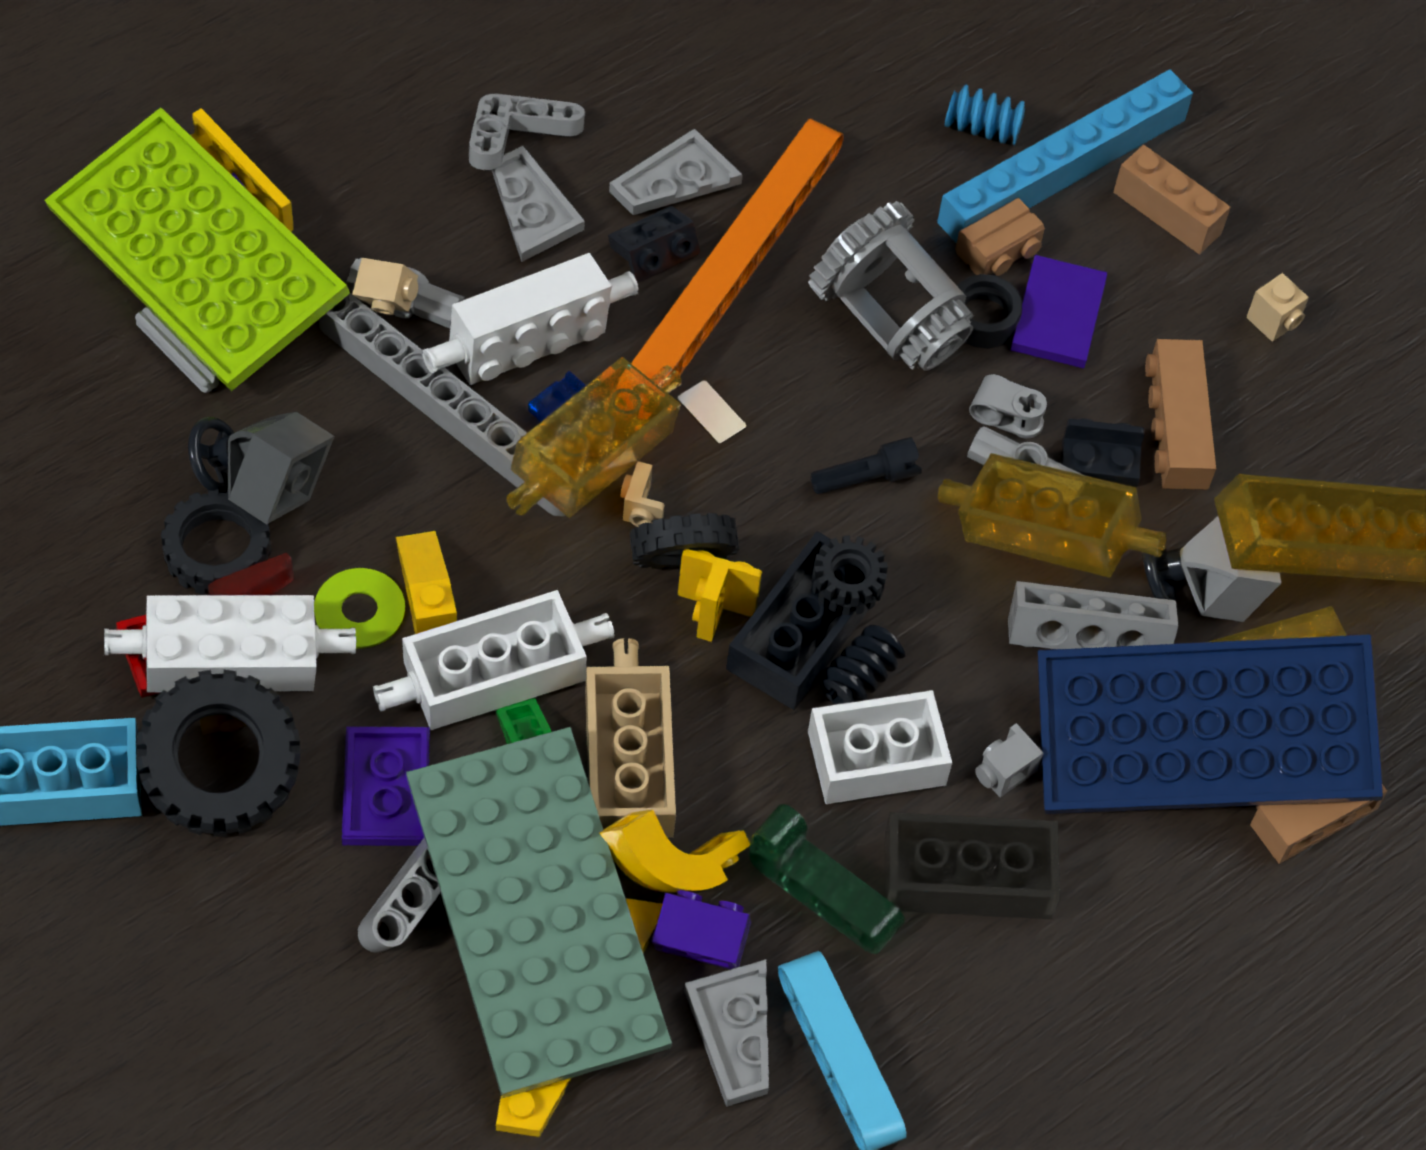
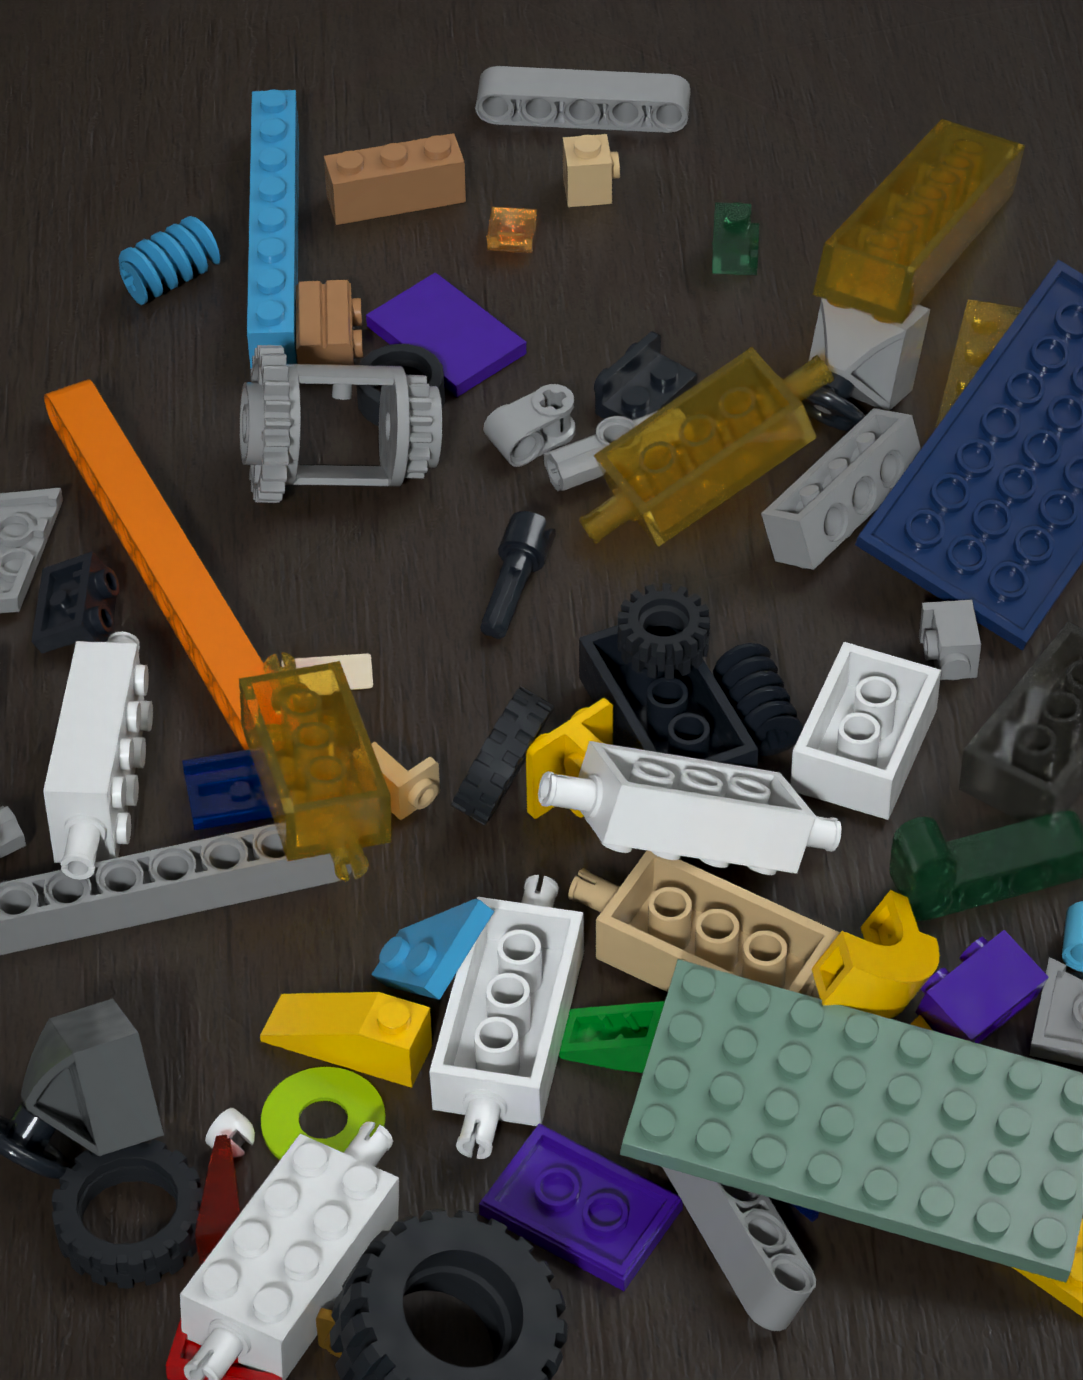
camera: 50 degrees left, 10 degrees down
(308, 562) = (235, 1127): none -> white hinge
(501, 588) = (431, 951): none -> dark azure wing
(712, 673) = (691, 809): none -> white brick
(1181, 414) = (648, 299): medium nougat brick -> none
(1186, 294) = (512, 229): none -> clear orange plate
(1285, 432) = (734, 240): none -> clear green brick
(1351, 268) = (583, 99): none -> light grey beam

